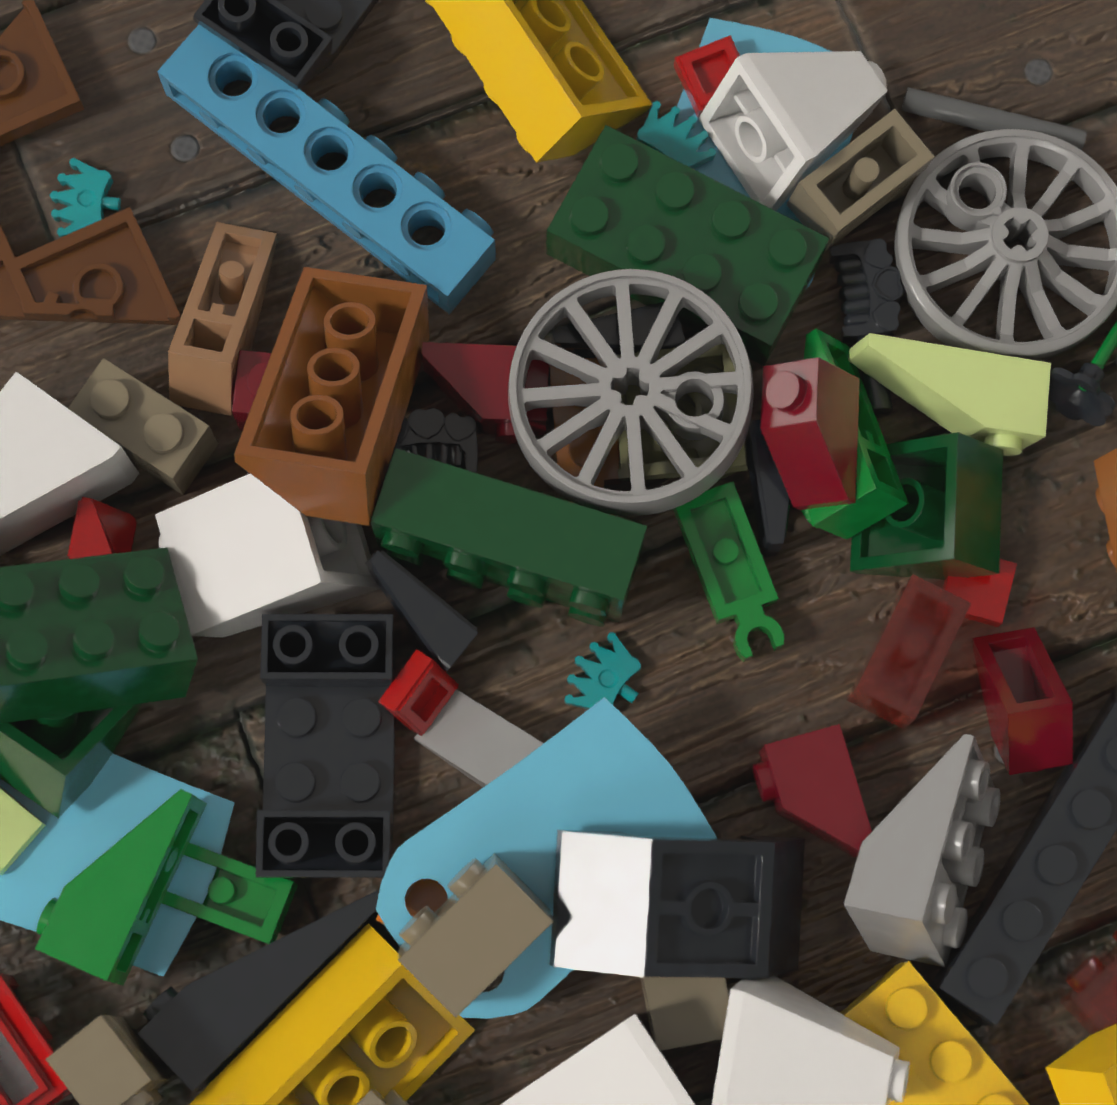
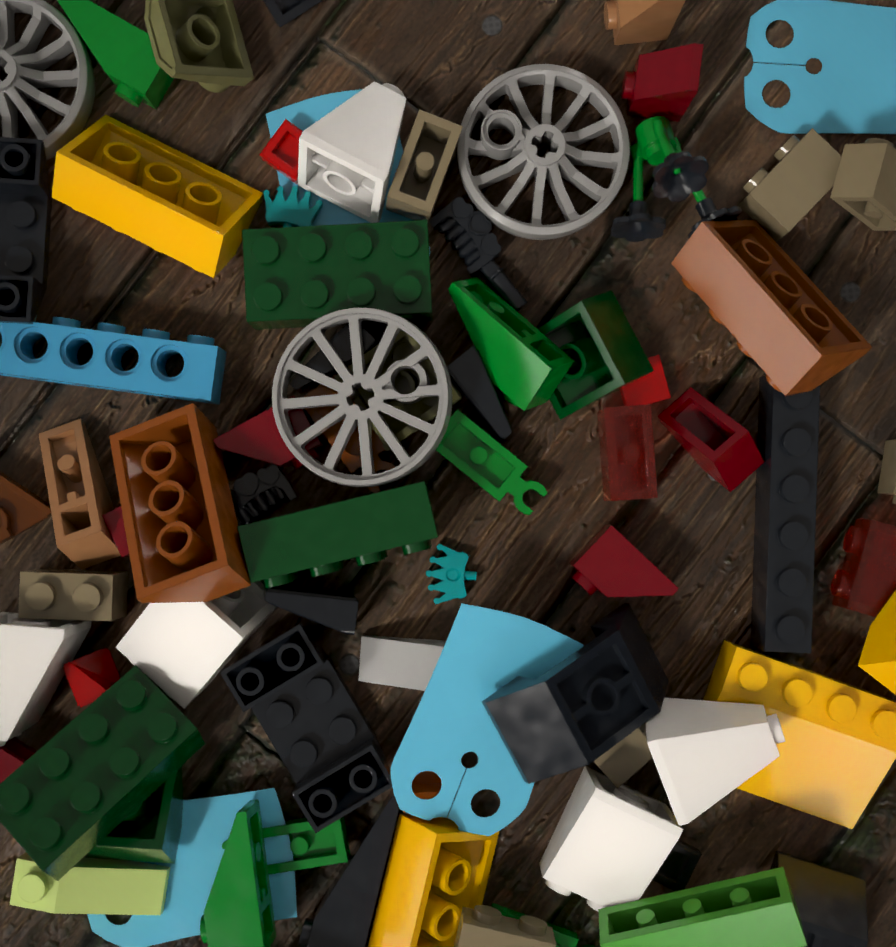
camera: 25 degrees left, 10 degrees up
(419, 693) = (344, 657): red tile -> none
(472, 933) = (468, 793): dark tan brick -> none
(812, 430) = (490, 354): dark red slope -> none
(922, 860) = (709, 581): light grey slope -> none
(963, 389) = (568, 266): yellowish green slope -> none
(983, 117) = (478, 76): dark grey bar -> none

